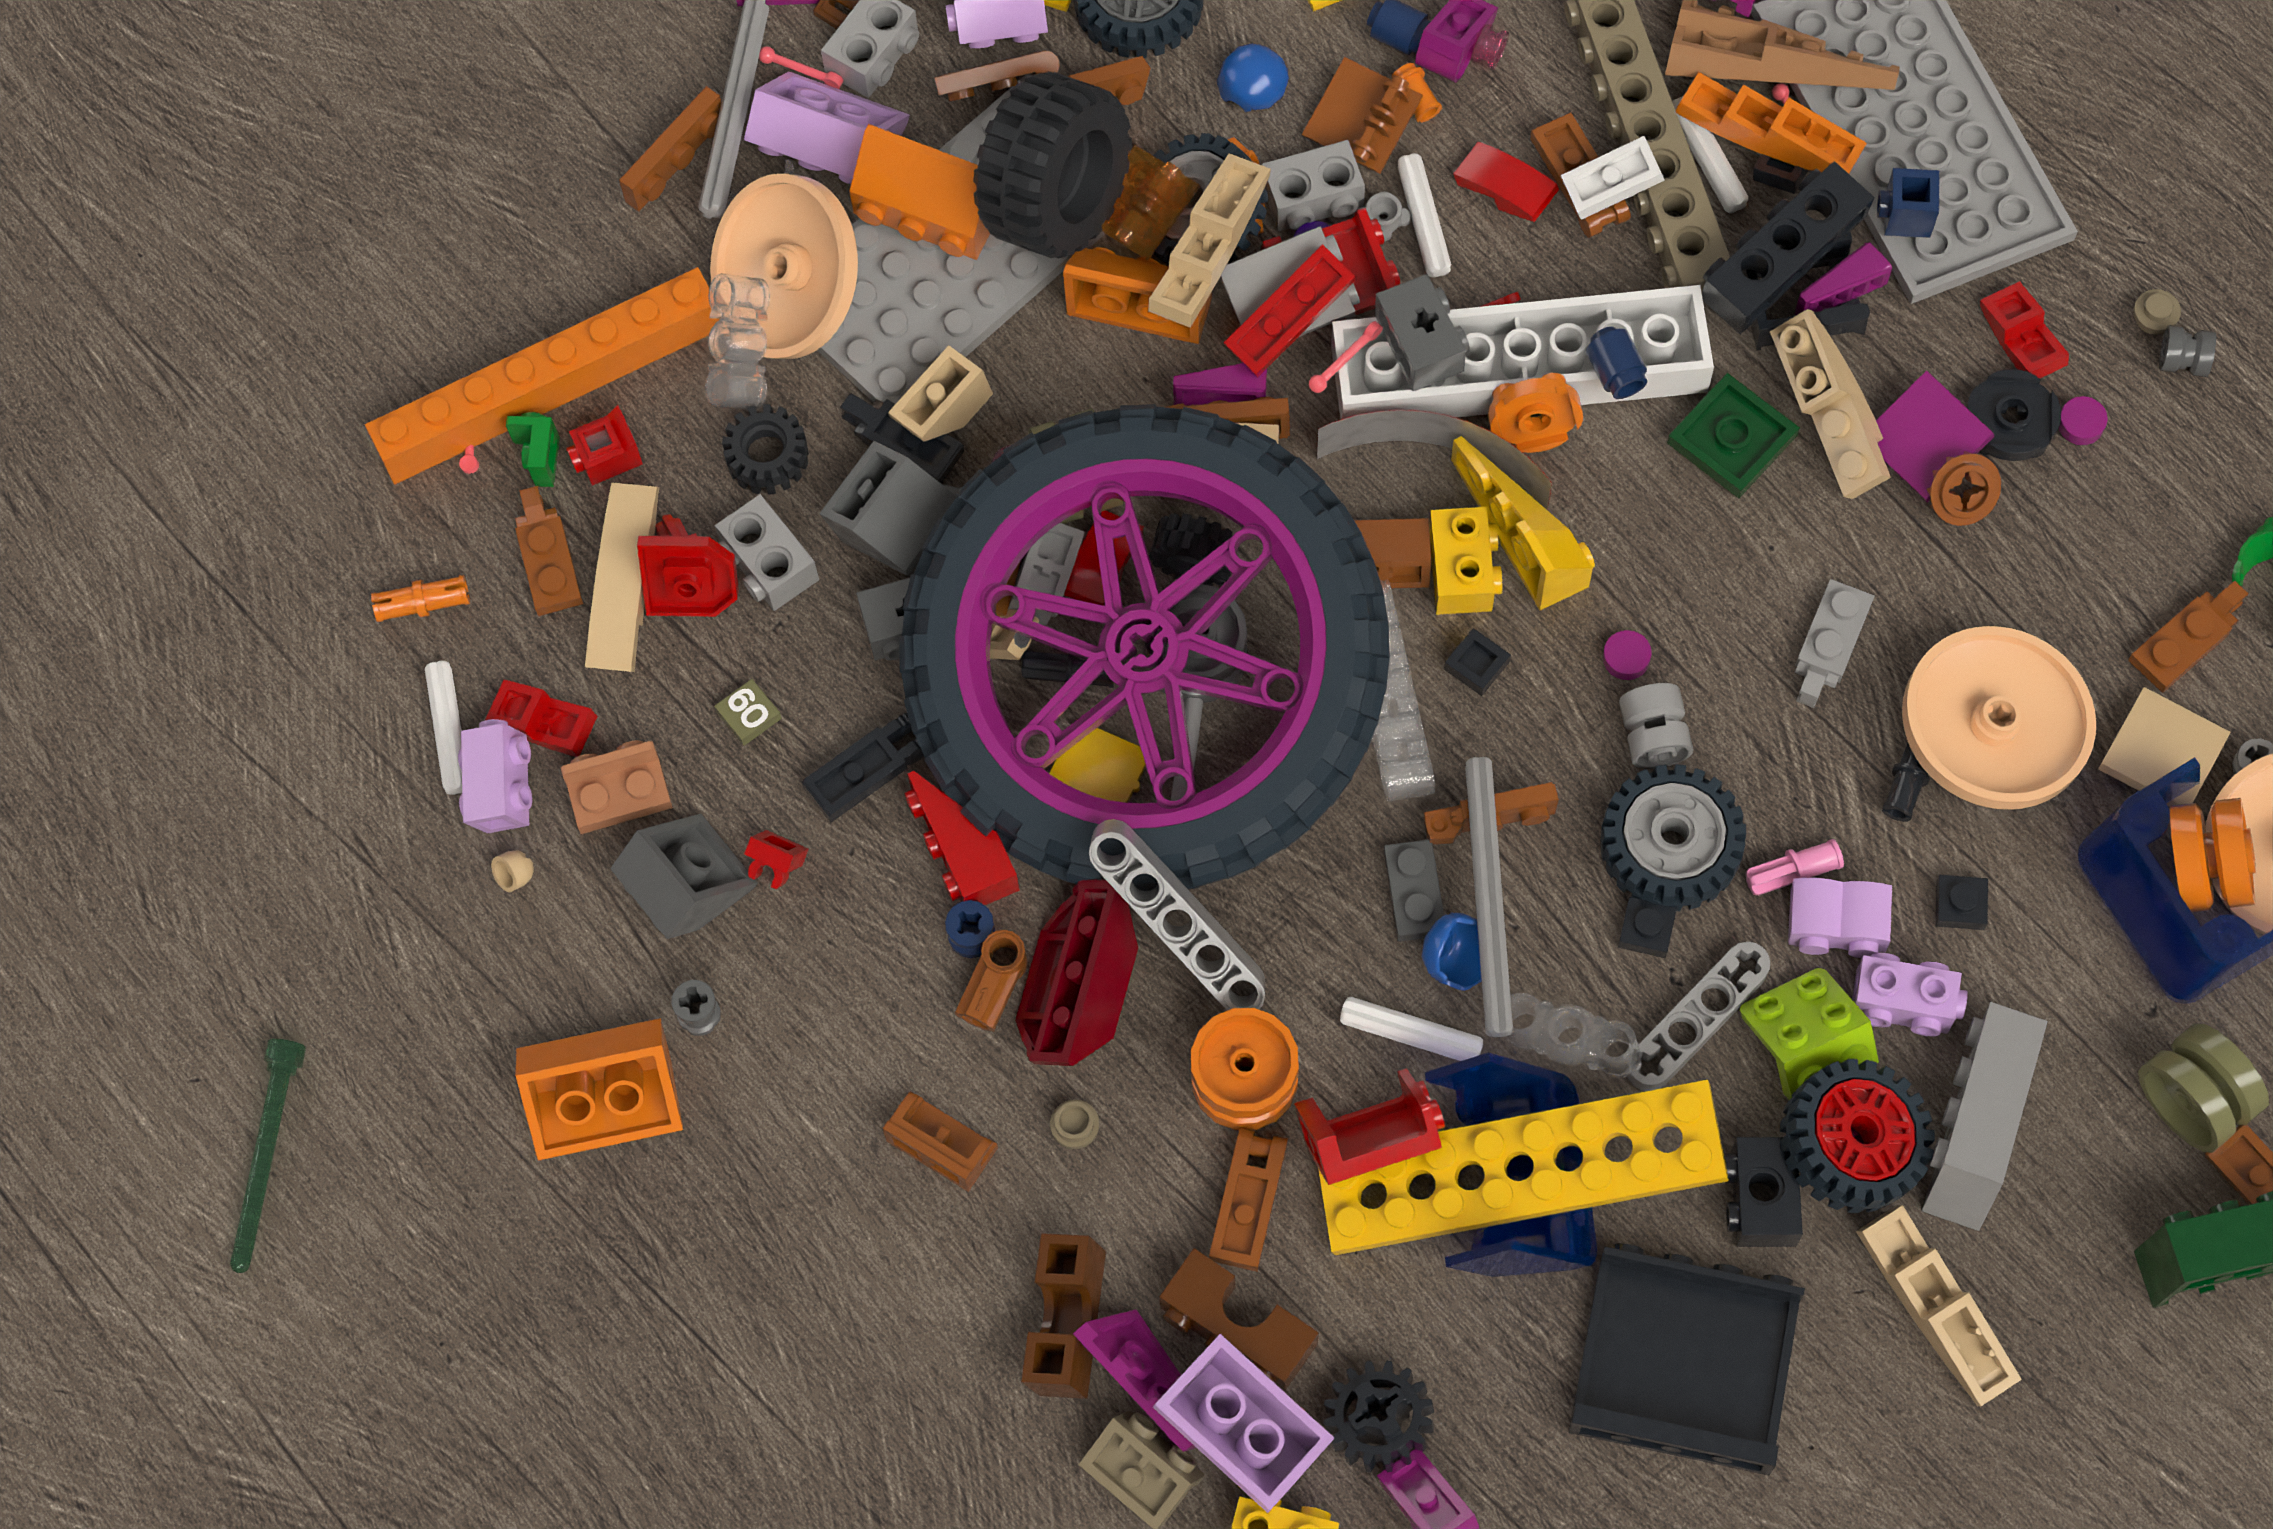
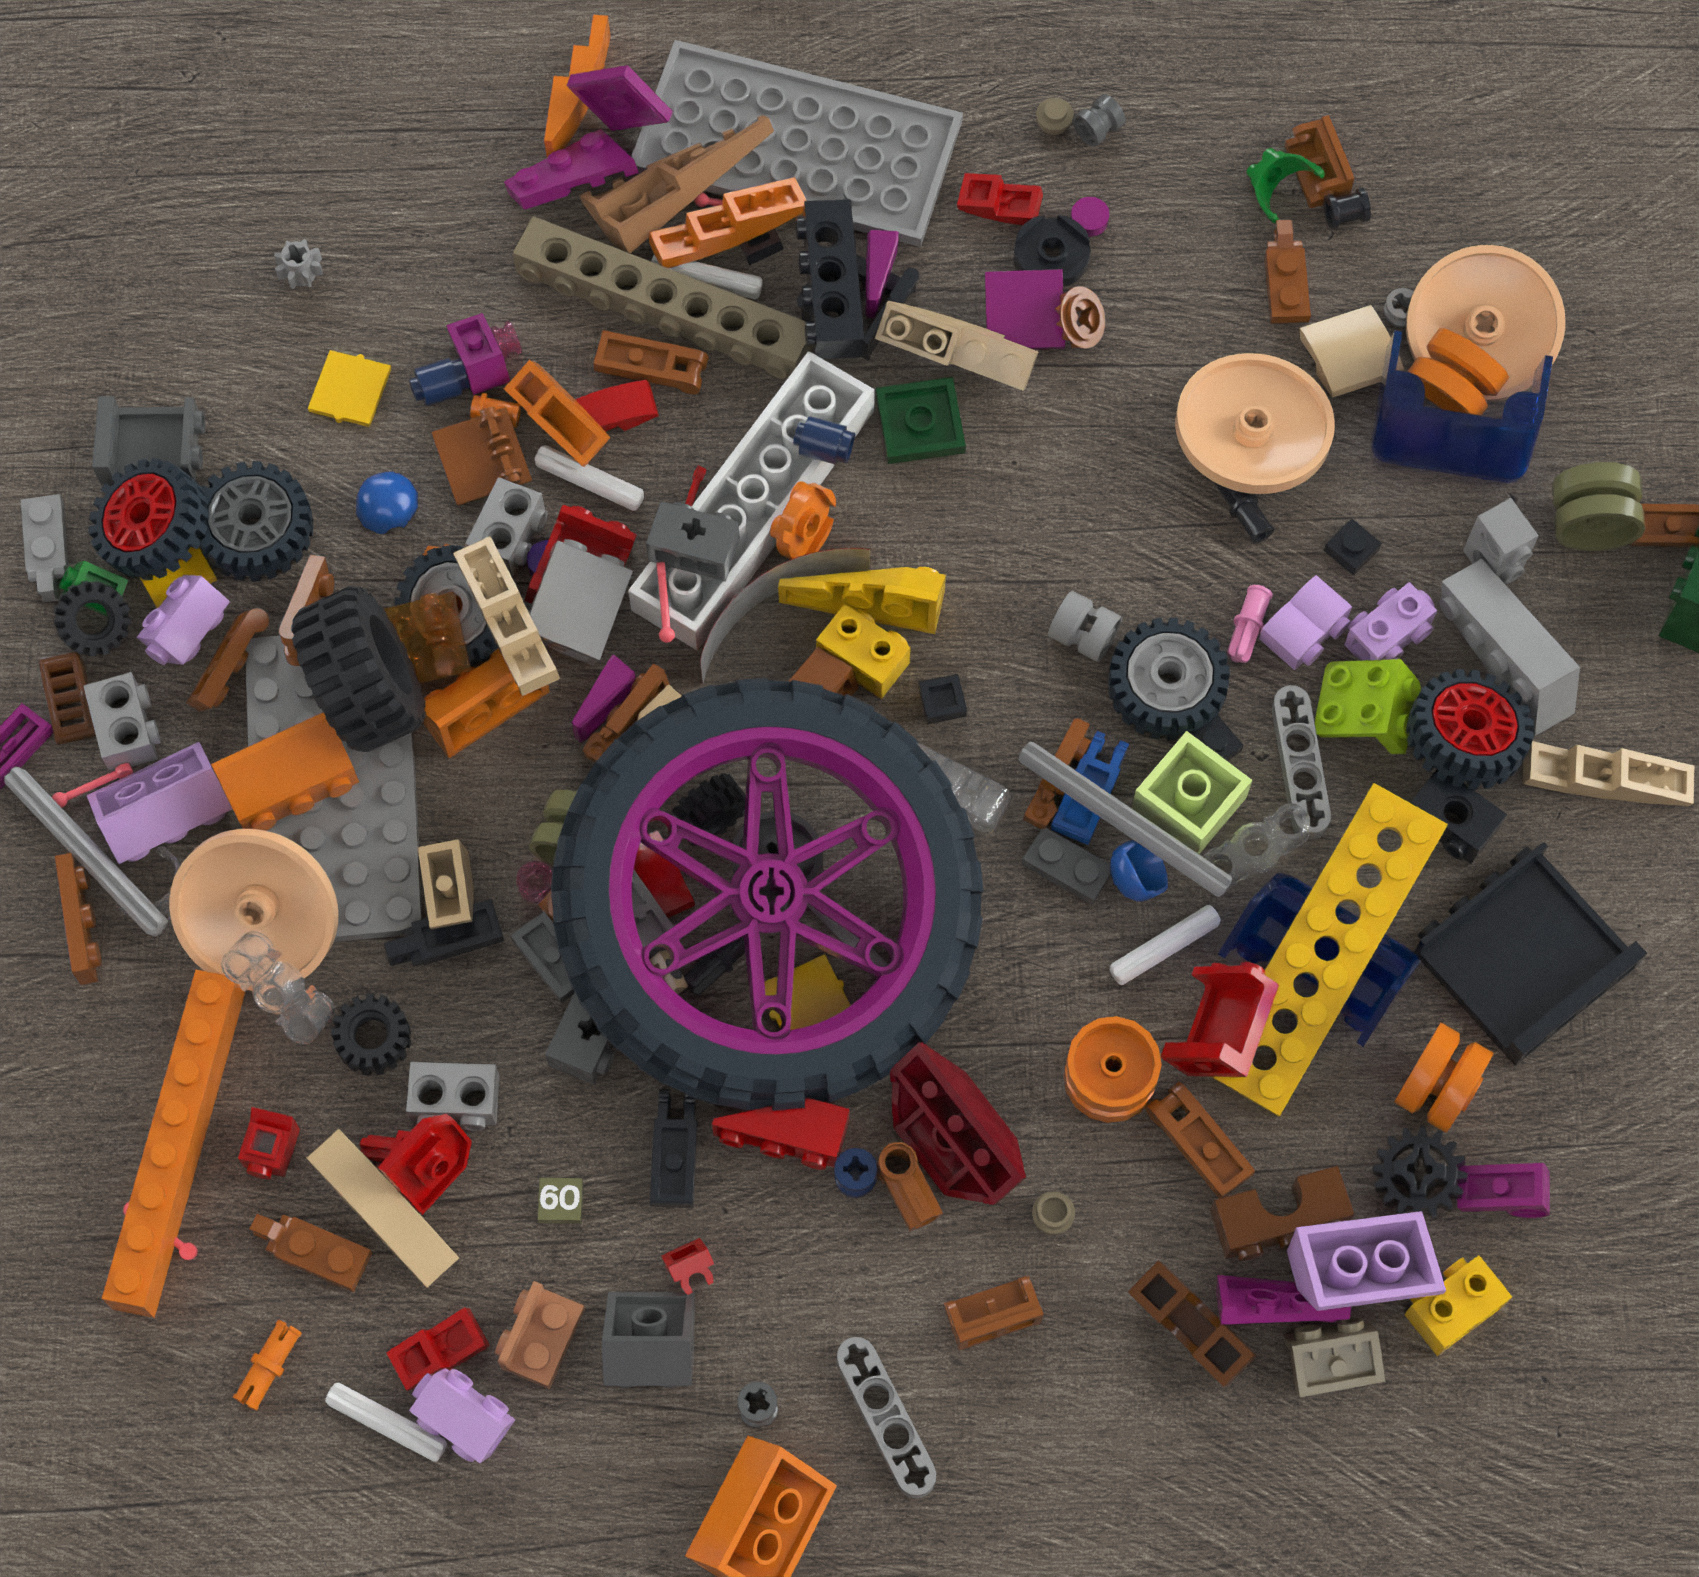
camera: 55 degrees left, 0 degrees up
(512, 870) = (540, 1449): tan hinge -> none
(539, 443) = (231, 1192): green bracket -> none
(779, 1125) = (881, 1419): none -> light grey beam
(887, 508) = (502, 983): dark grey slope -> none
(1173, 895) = (960, 1023): light grey beam -> none
(1290, 310) = (599, 609): red plate -> none
(1391, 206) = (564, 492): light grey plate -> none
(1456, 137) = (557, 412): none -> orange slope
(1485, 1365) = (1445, 1078): none -> orange wheel
(1517, 851) = (1074, 818): none -> blue hinge
(1572, 939) = (1191, 793): none -> yellowish green brick
(1612, 177) = (681, 341): white plate -> none
(1627, 655) = (1015, 606): magenta tile -> none
(1831, 639) = (1110, 478): light grey hinge -> none
(1910, 203) = (866, 184): dark blue brick -> none
(2079, 1026) = (1502, 540): none -> light grey brick

